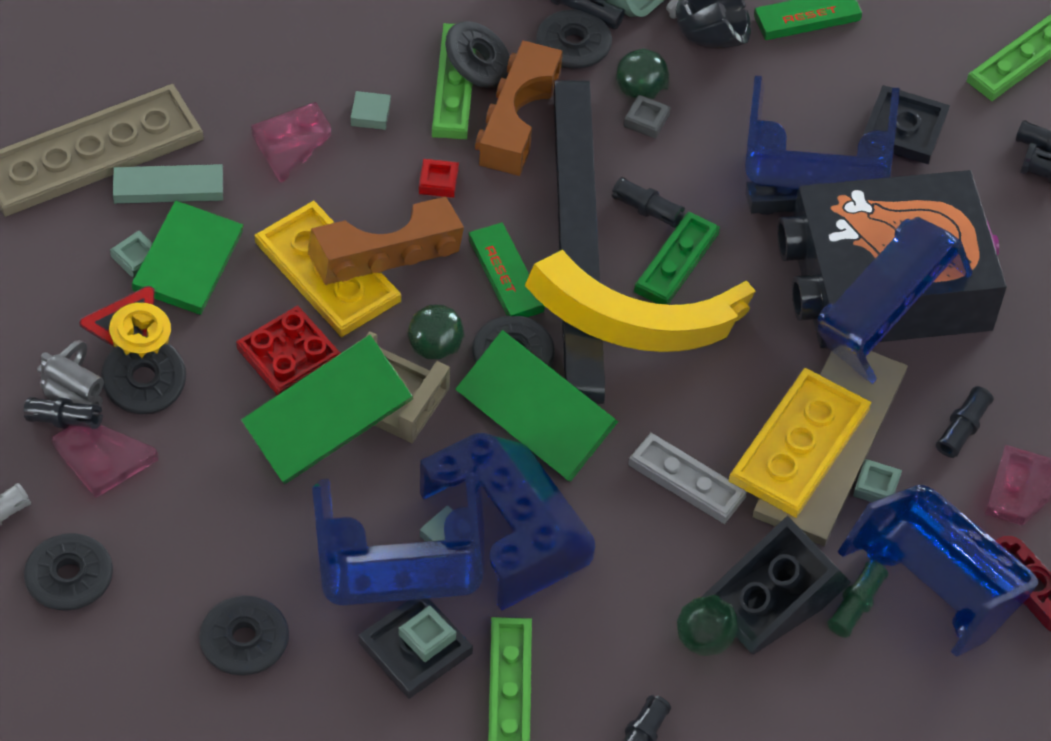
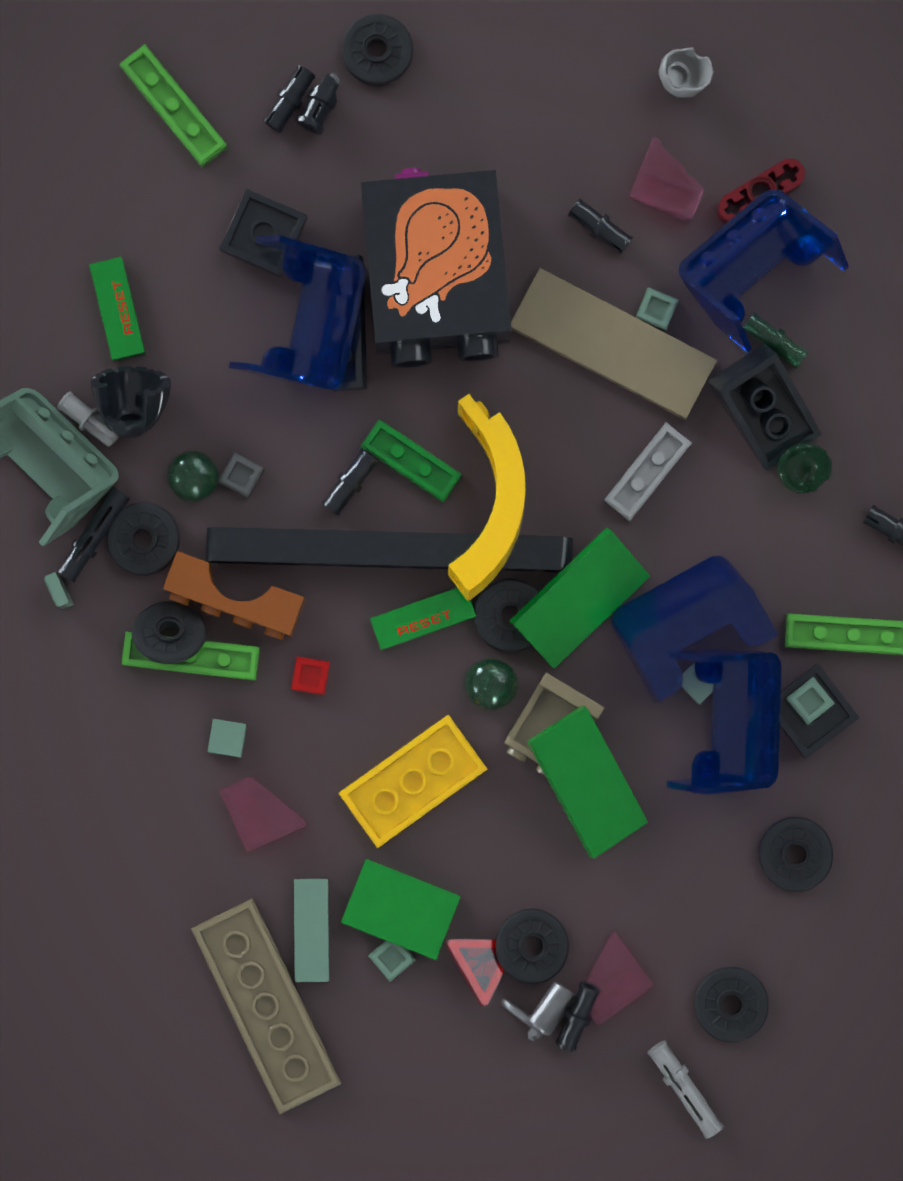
camera: 85 degrees left, 30 degrees up
(143, 316) = (500, 934): yellow gear -> none
(287, 349) = (505, 816): red tile -> none
(346, 252) = (415, 765): dark orange arch -> none
(800, 442) = (622, 370): yellow tile -> none
(888, 290) = (517, 269): clear blue windscreen -> none

